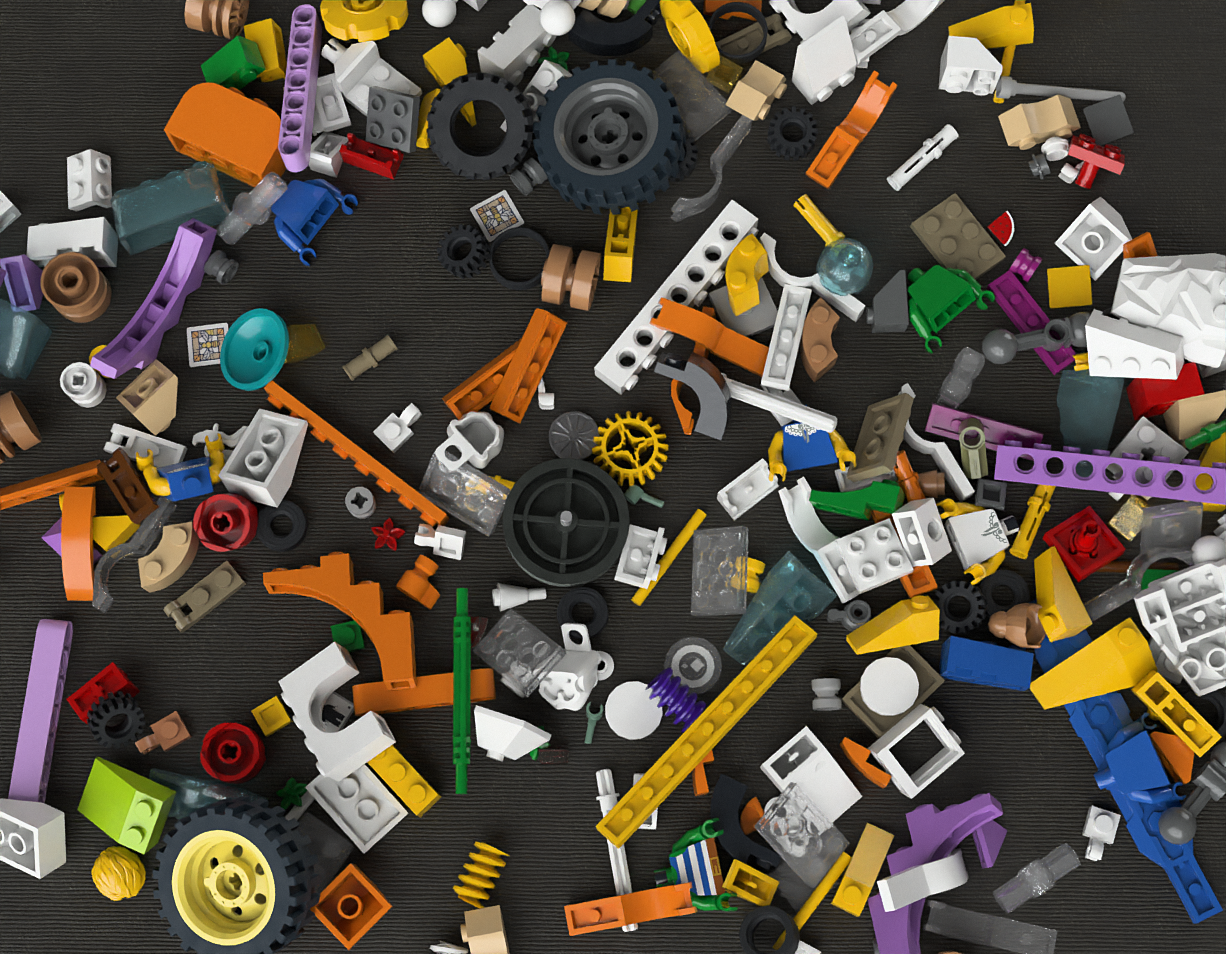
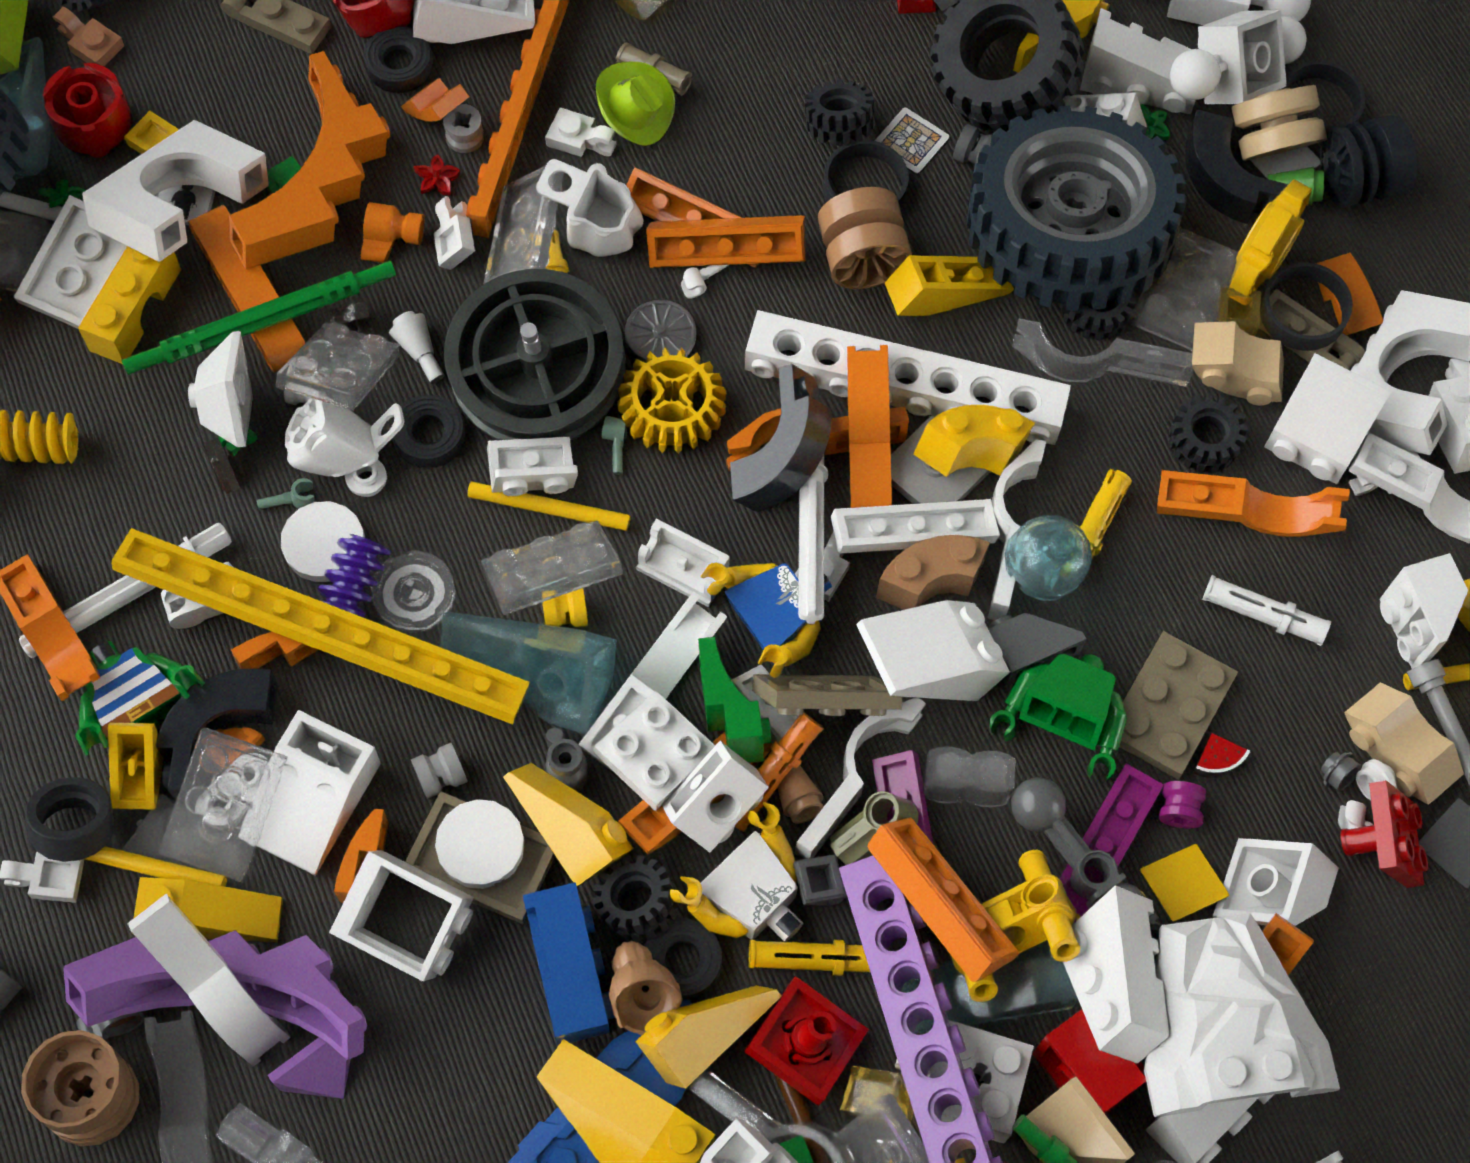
camera: 60 degrees right, 10 degrees down
(335, 513) = (434, 101): none -> orange slope
(394, 380) = (636, 101): none -> lime hat
(881, 362) = (935, 651): none -> white slope
(1044, 427) = (941, 898): none -> orange slope
(1069, 396) = (1030, 916): none -> yellow piece

